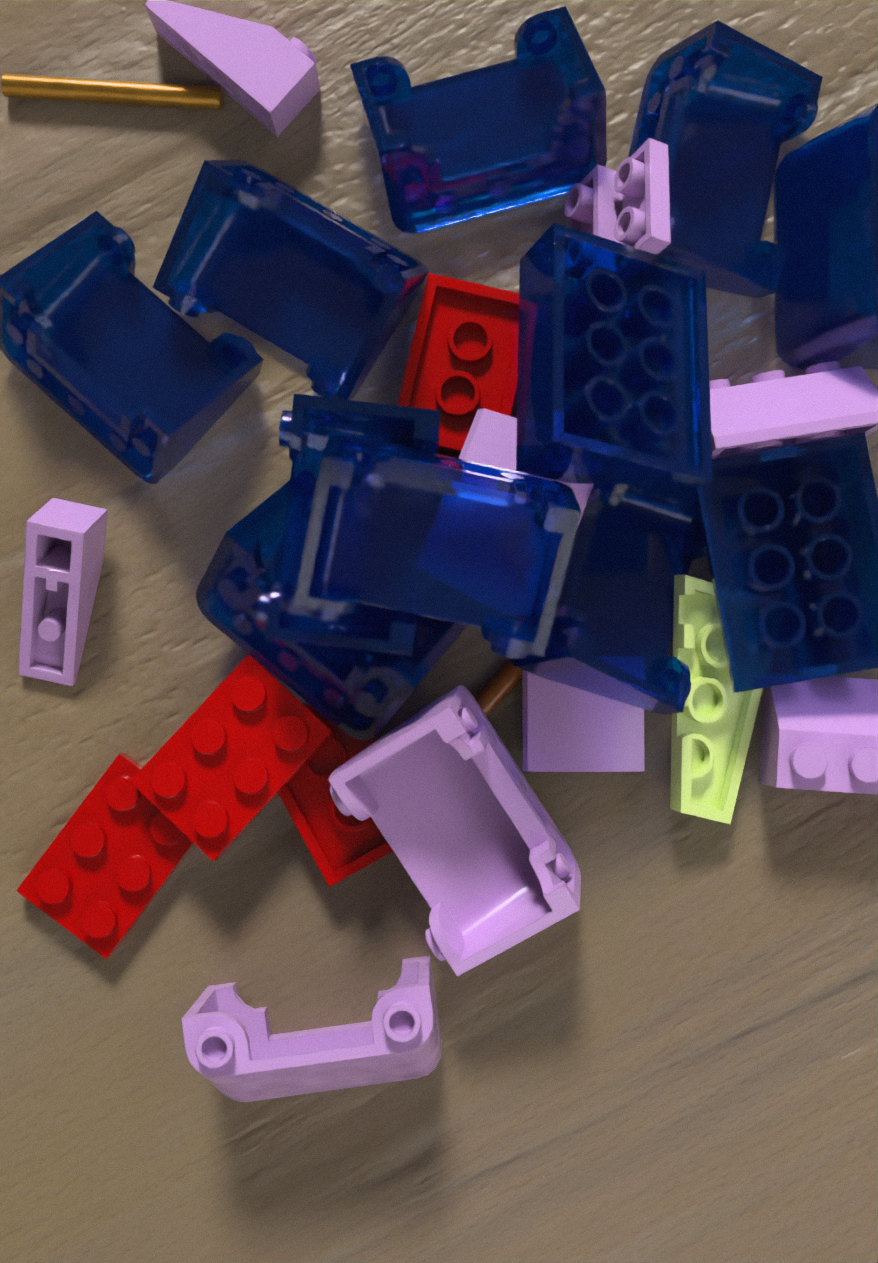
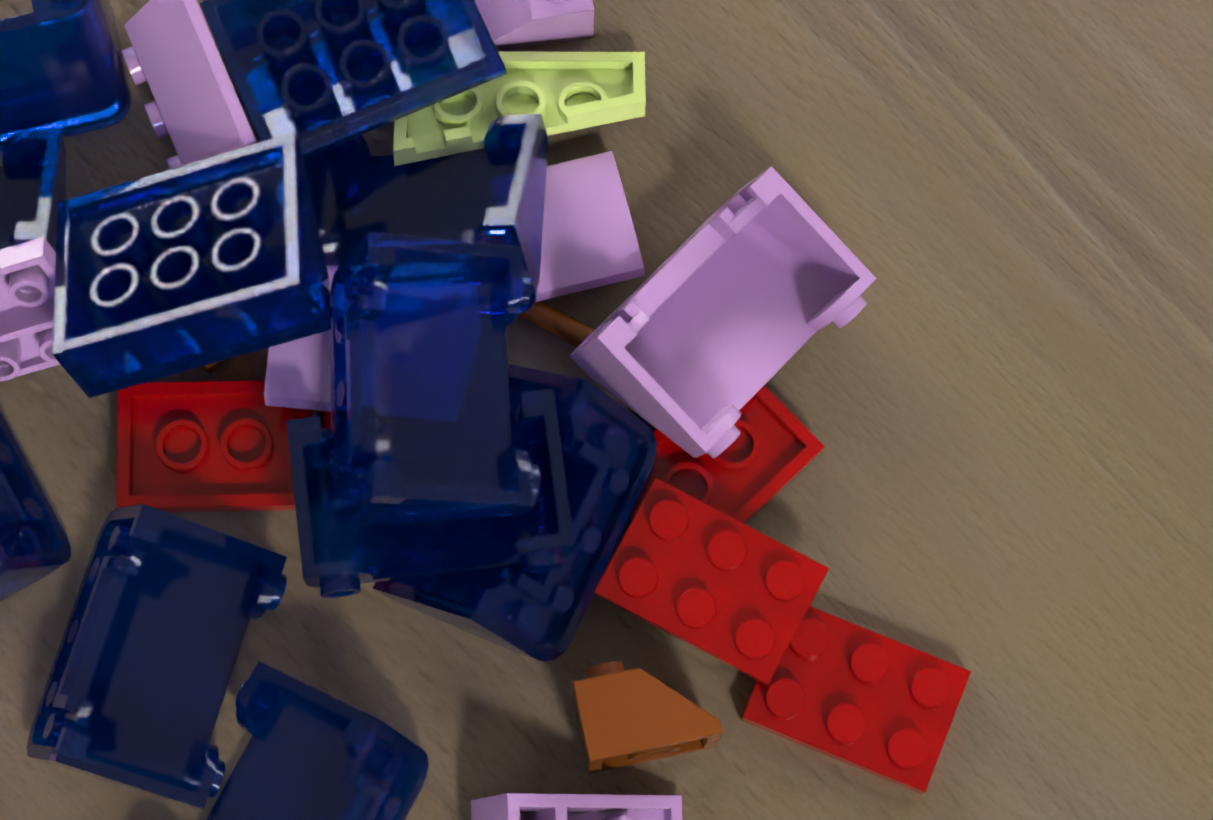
camera: 110 degrees left, 10 degrees down
(125, 661) = (636, 718): none -> dark orange slope
(246, 1063) = (964, 327): lavender windscreen -> none

